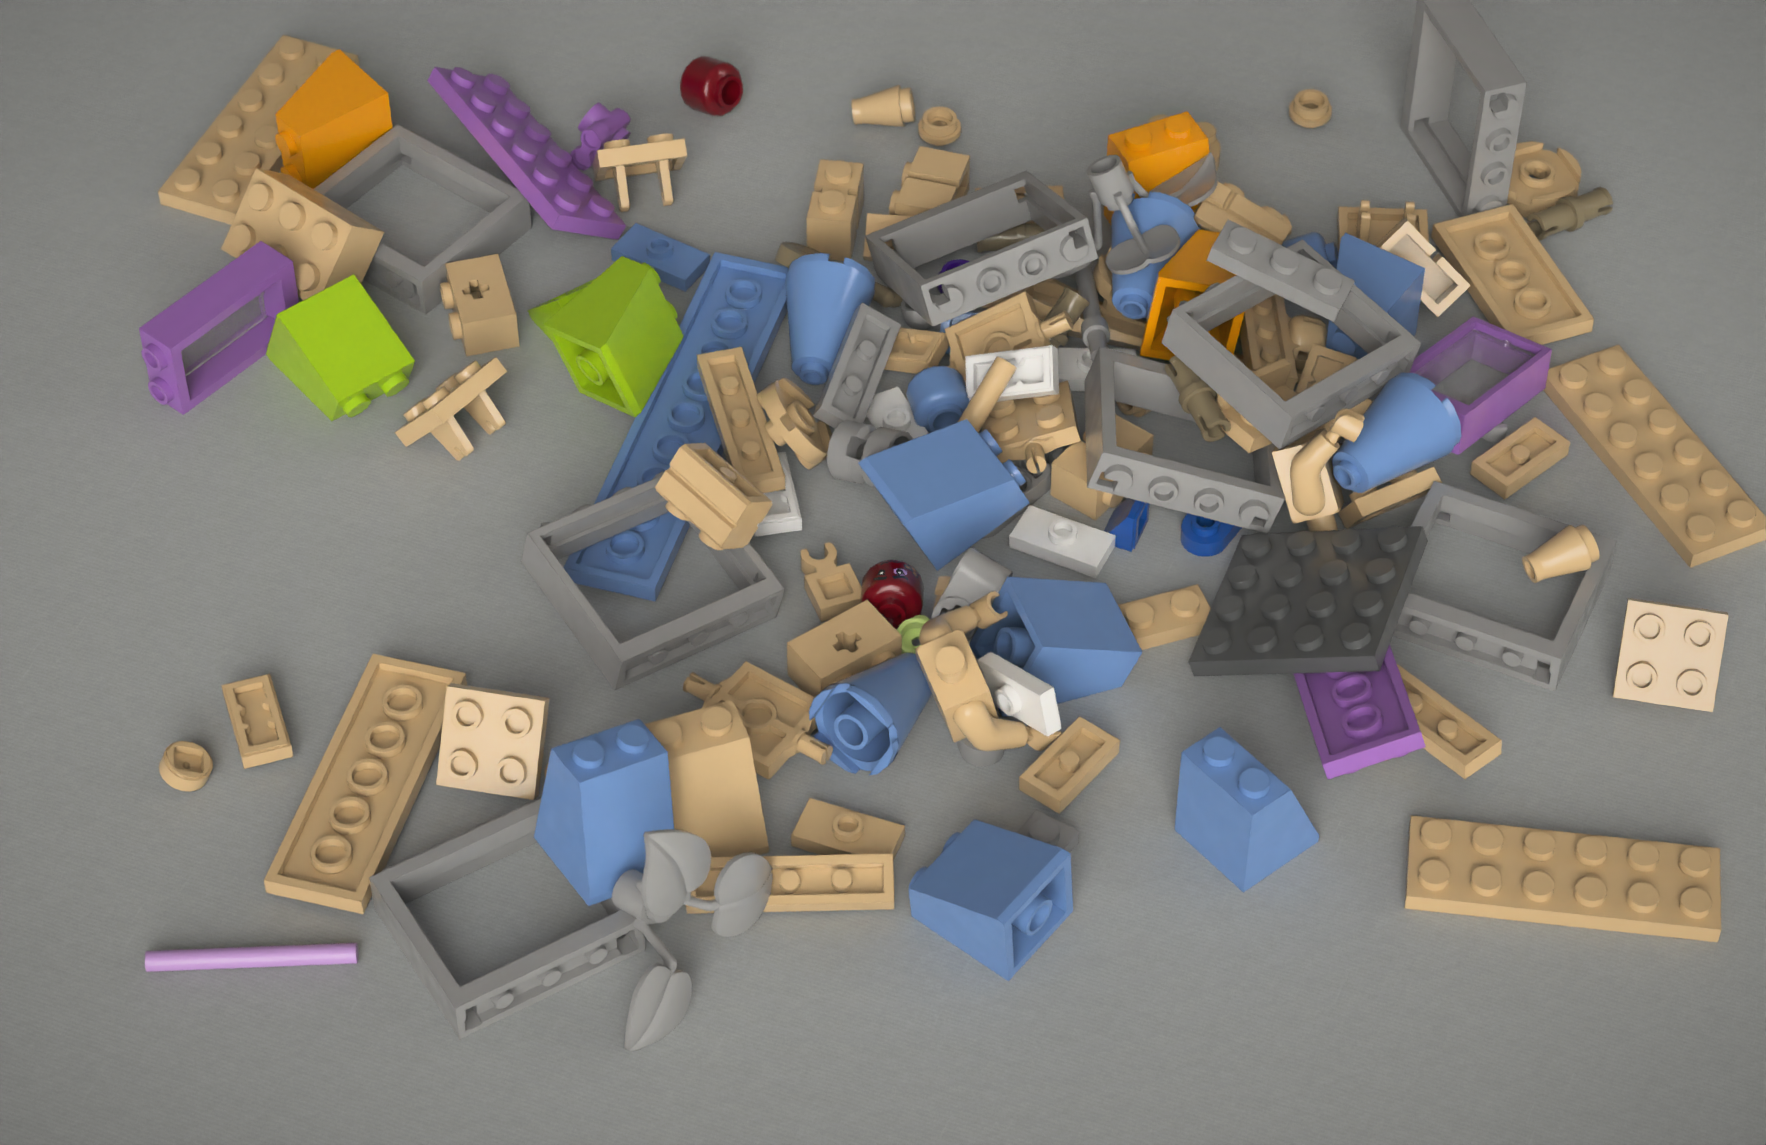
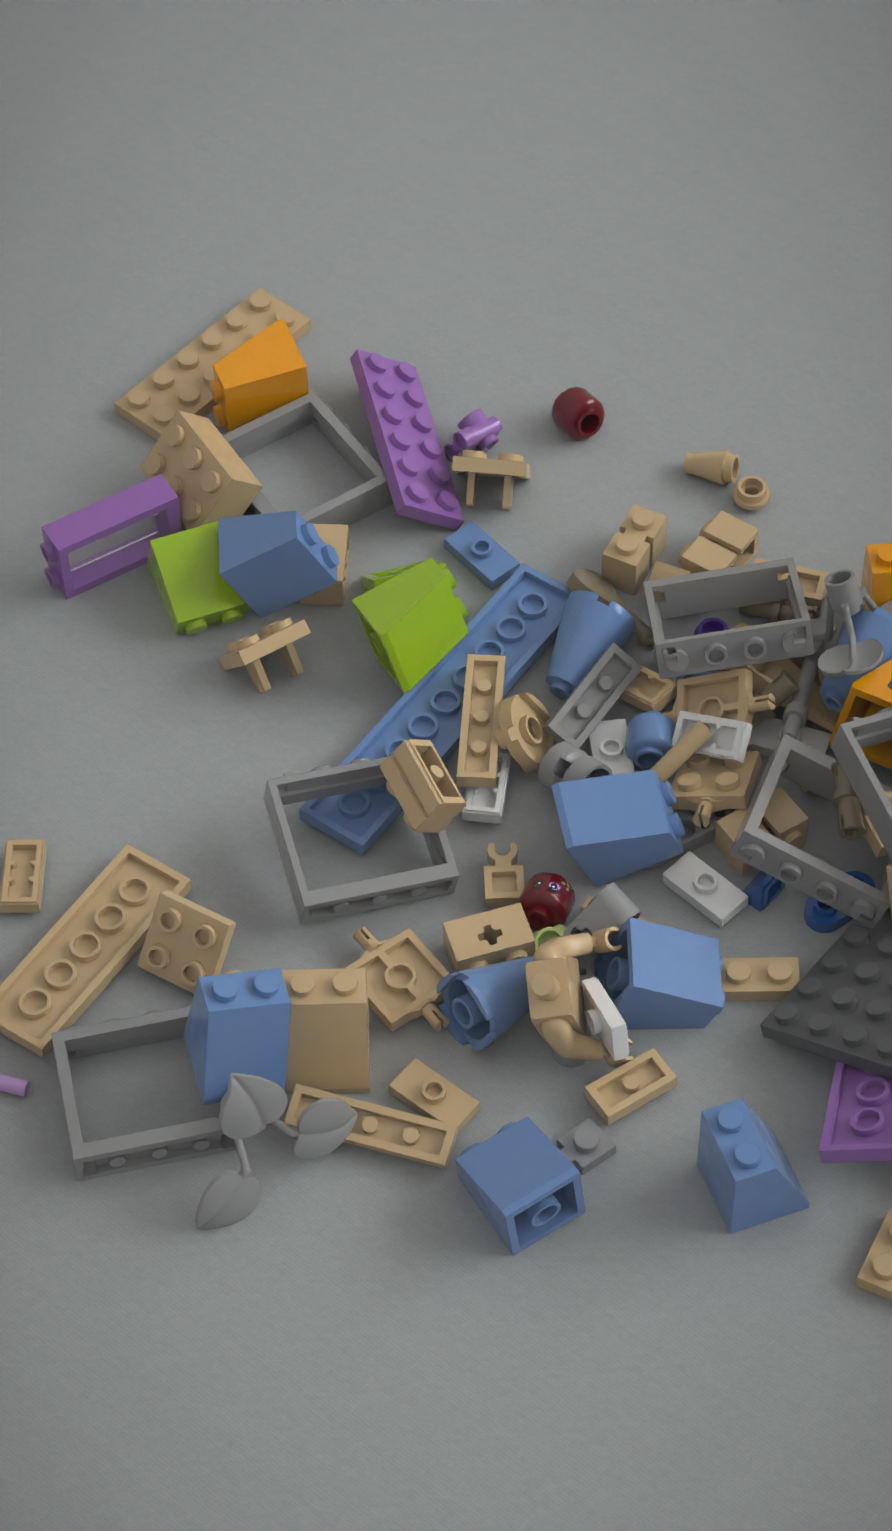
camera: 20 degrees right, 5 degrees up
(435, 300) = (274, 559): none -> medium blue slope

